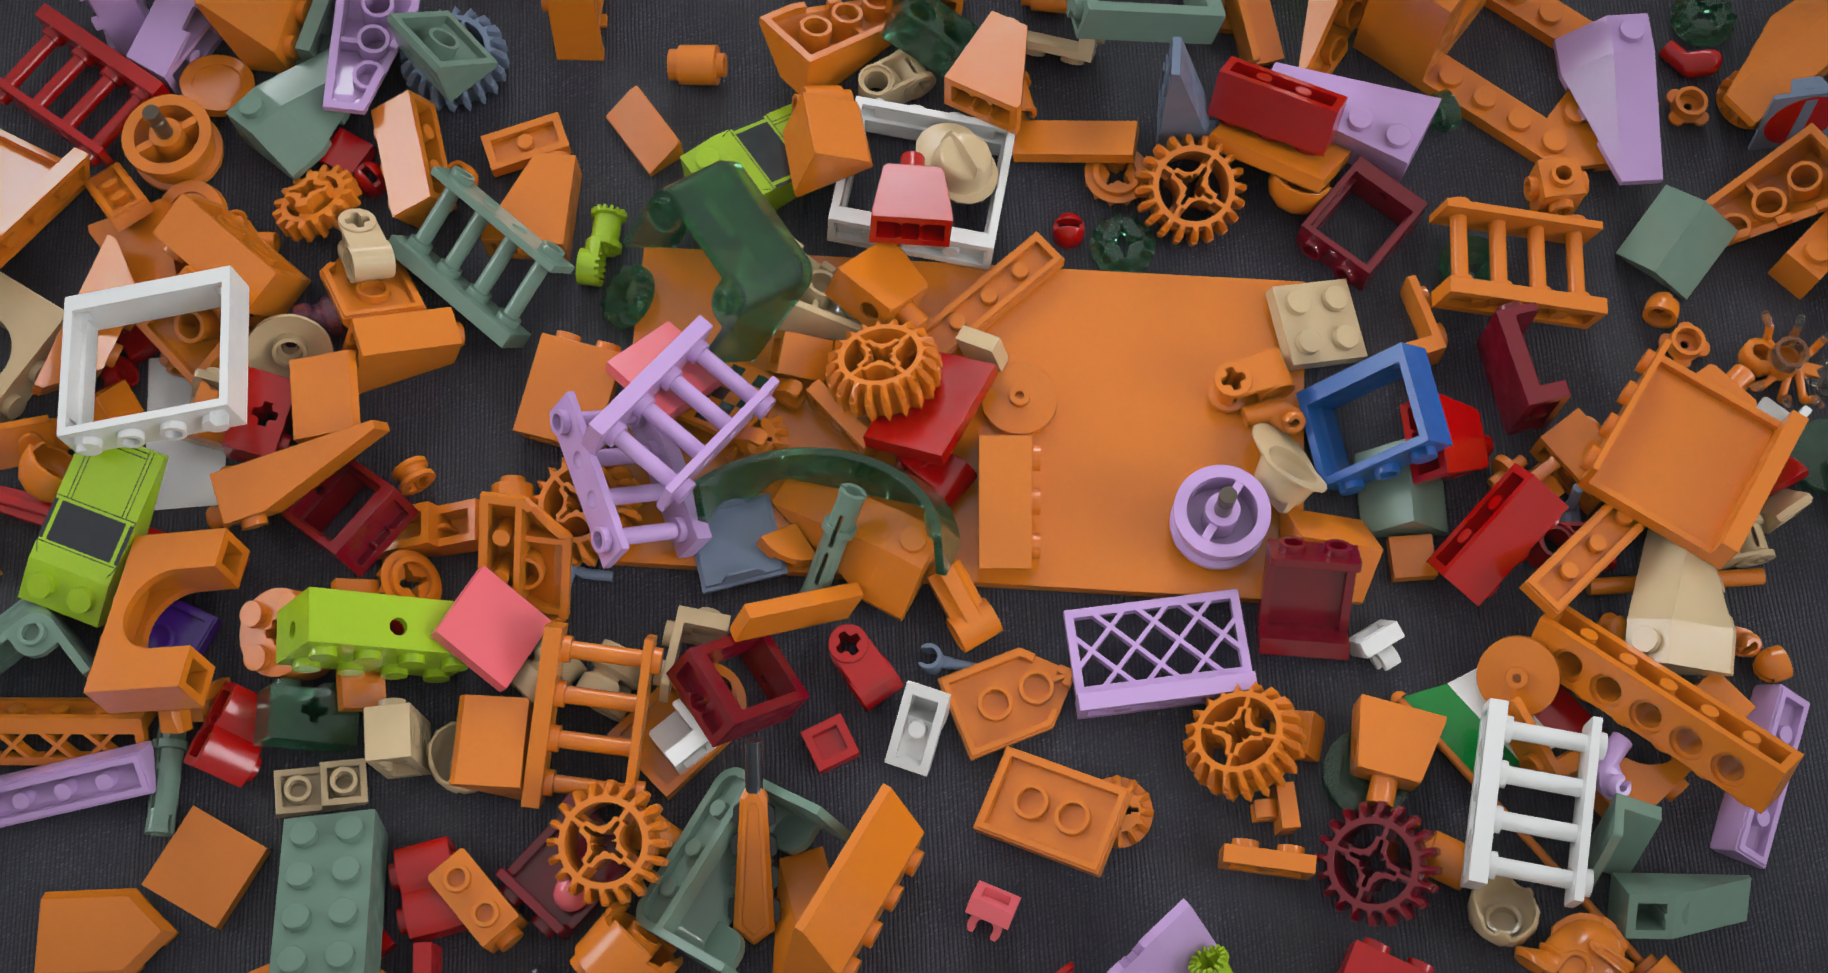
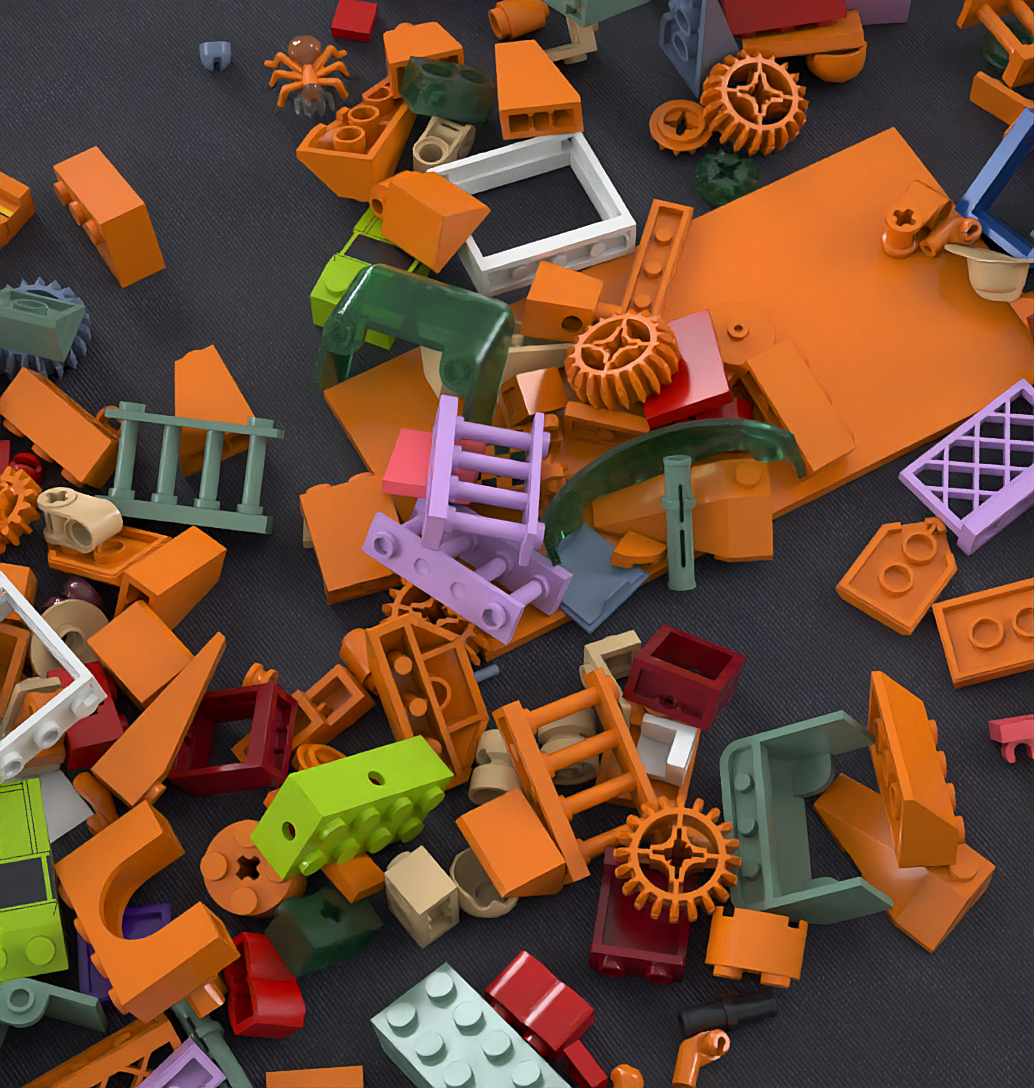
camera: 35 degrees left, 10 degrees down
(320, 788) = (373, 987): tan slope -> none
(478, 902) = (593, 983): orange bracket -> none
(491, 628) = (445, 748): coral tile -> none
(515, 146) = (151, 365): orange plate -> none
(566, 901) = (662, 934): coral hinge -> none
(602, 244) = (284, 407): lime connector -> none
(639, 287) = (340, 453): clear green gear -> none
(645, 132) = (251, 300): orange slope -> none
(696, 64) = (258, 224): orange brick -> none
(754, 876) = (810, 820): orange sword -> none
(795, 611) = (688, 592): orange tile -> none
(830, 744) = (785, 690): red tile -> none
(866, 672) = (772, 612): red piece -> none
(911, 204) = (549, 220): torso -> none
(918, 728) = (853, 627): white slope -> none
(942, 662) = (829, 572): sand blue hand -> none
(963, 157) = (553, 173): tan piece -> none
(968, 615) = (825, 521): orange piece -> none
(982, 347) = (680, 303): tan tile -> none
(1068, 236) = (677, 191): red hinge -> none
(1076, 141) = (636, 113): orange tile -> none
(1220, 517) = (971, 328): lavender wheel -> none
(1316, 324) = (928, 150): tan plate -> none
(1379, 192) = (926, 32): dark red window -> none

